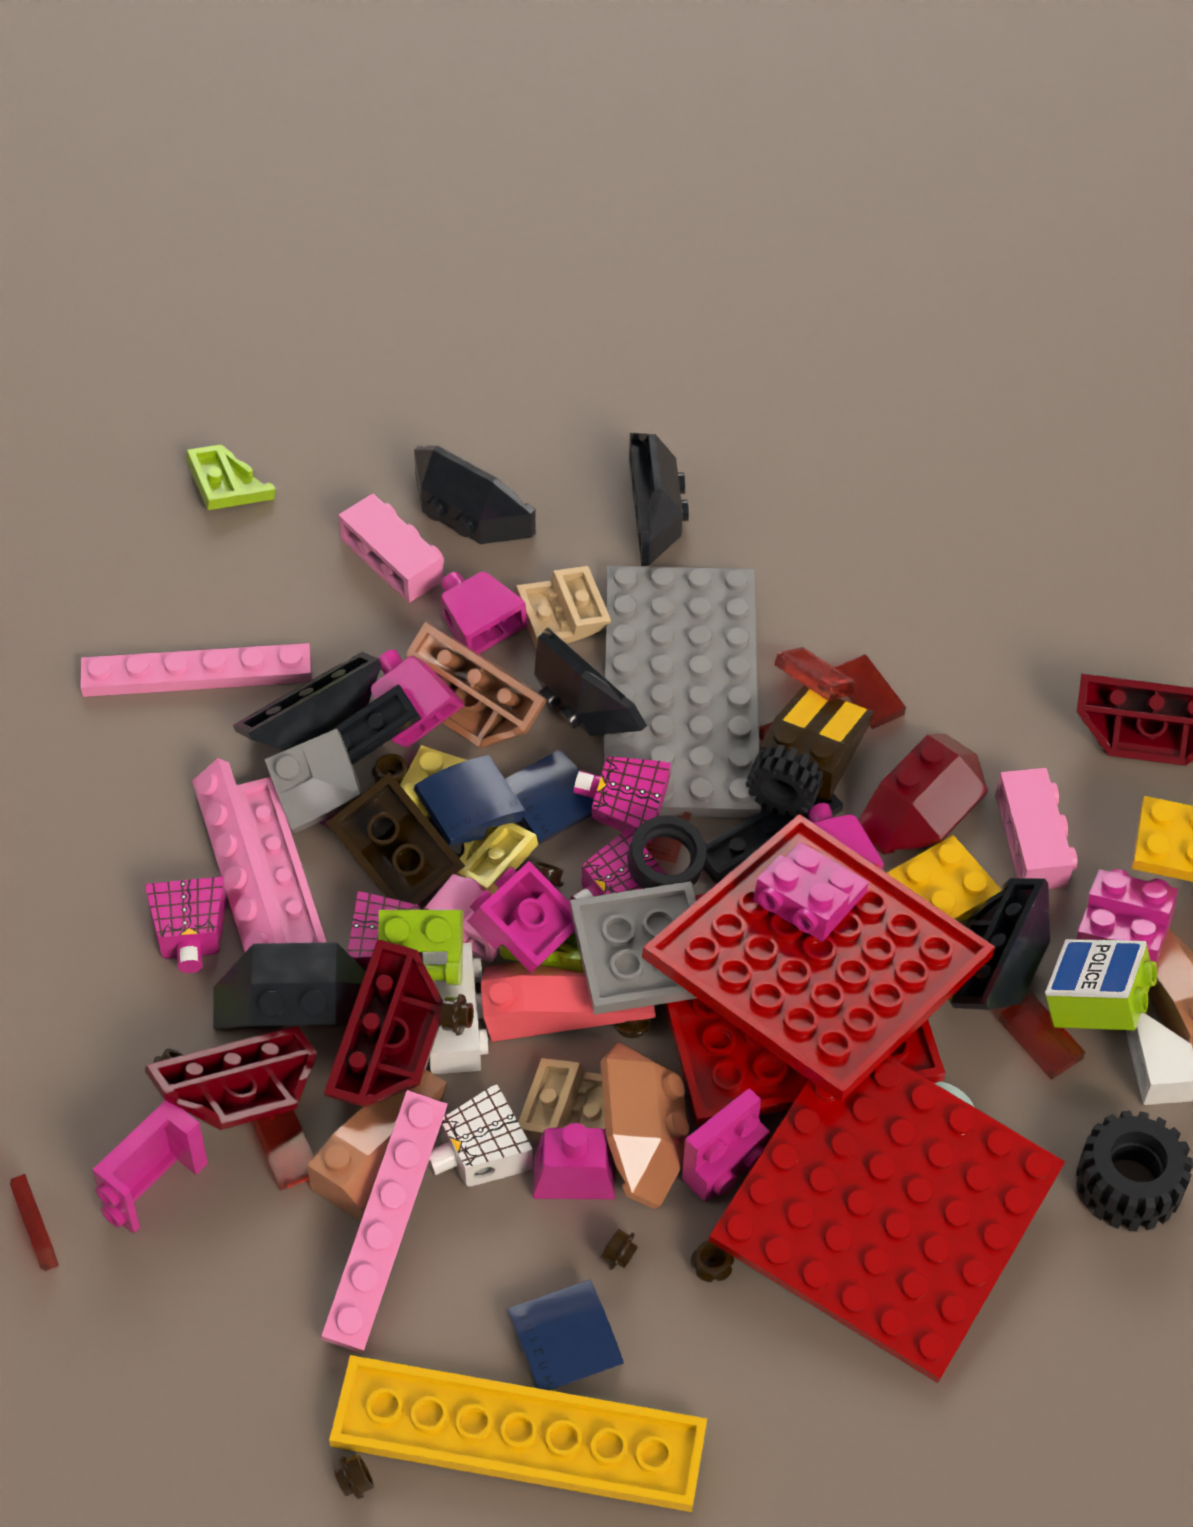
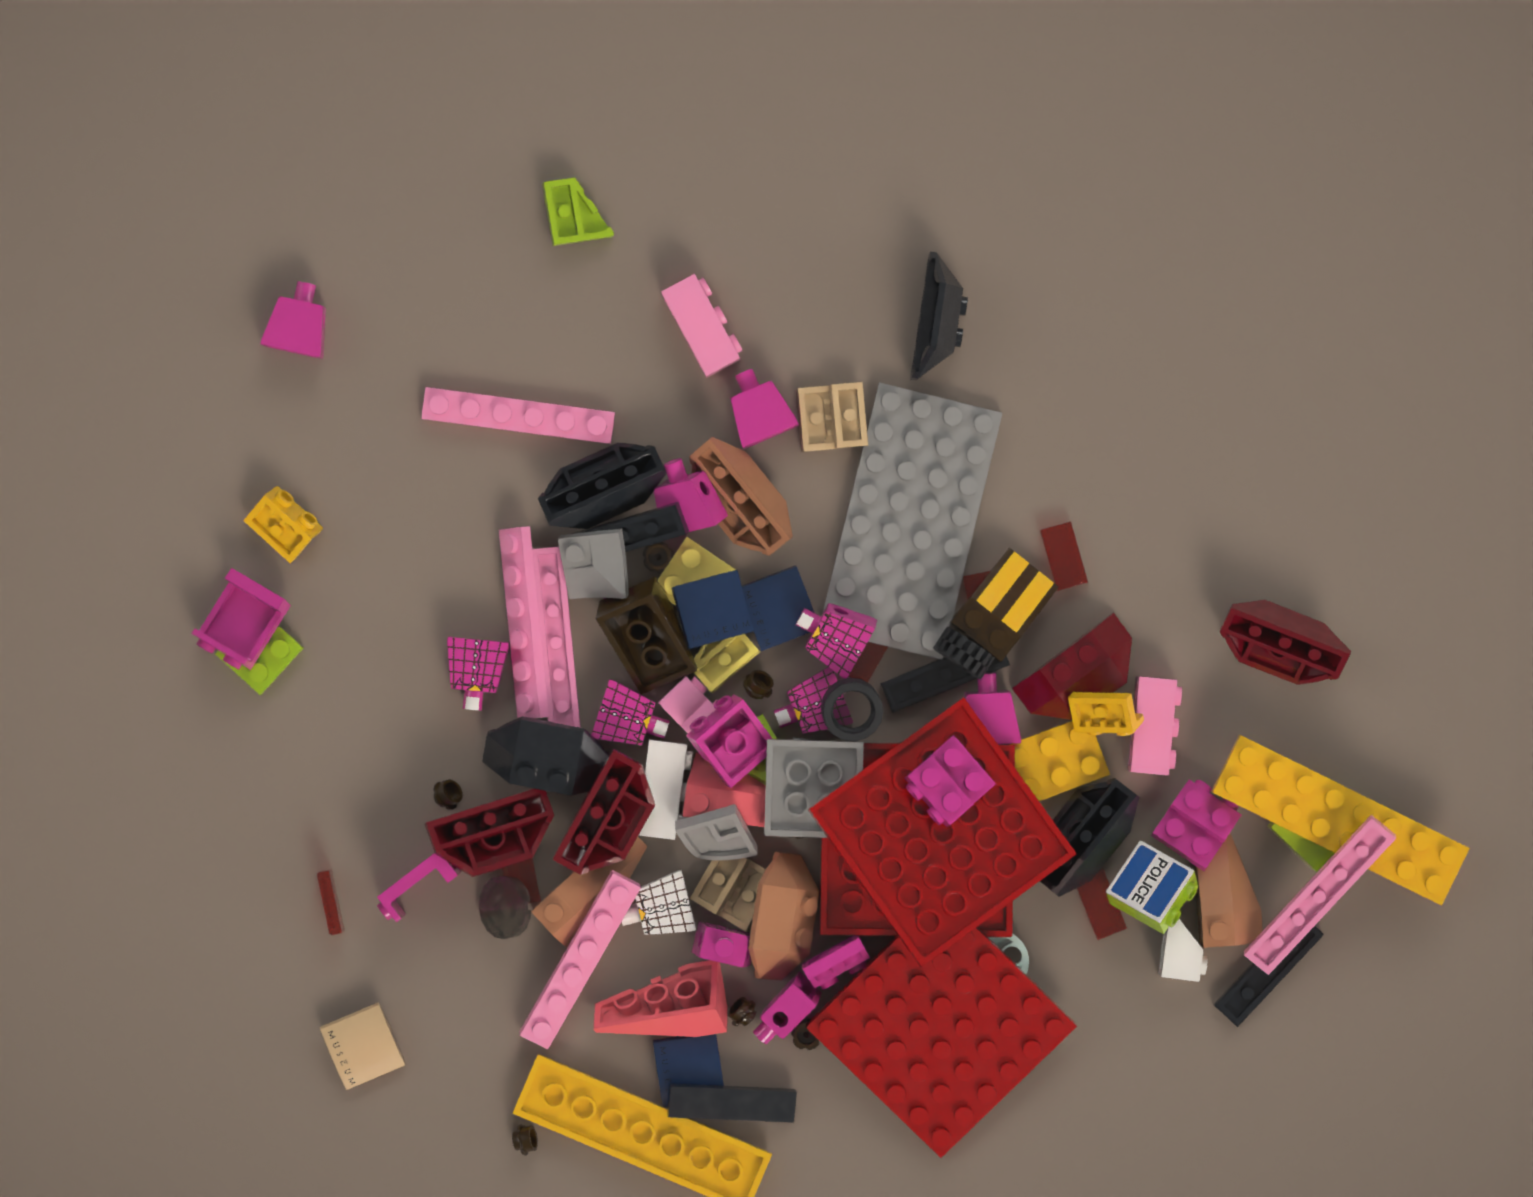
camera: 15 degrees right, 35 degrees up
(101, 1400) = (362, 1046): none -> tan slope
(271, 1176) = (504, 907): none -> clear smoke tile
(428, 933) = (650, 740): lime plate -> none
(456, 1014) = (662, 814): dark brown plate -> none
(470, 498) = (772, 288): black wedge -> none
(533, 1027) = (717, 835): none -> light grey plate
(542, 1254) = (680, 1005): none -> coral wedge
(581, 690) = (824, 517): black wedge -> none
(633, 1362) = (731, 1103): none -> black tile
(679, 1222) = (794, 1000): none -> dark pink torso
(815, 673) = (1022, 536): clear red tile -> none
(973, 806) = (1104, 713): none -> yellow bracket
(1148, 1144) = (1146, 1057): black tyre -> none

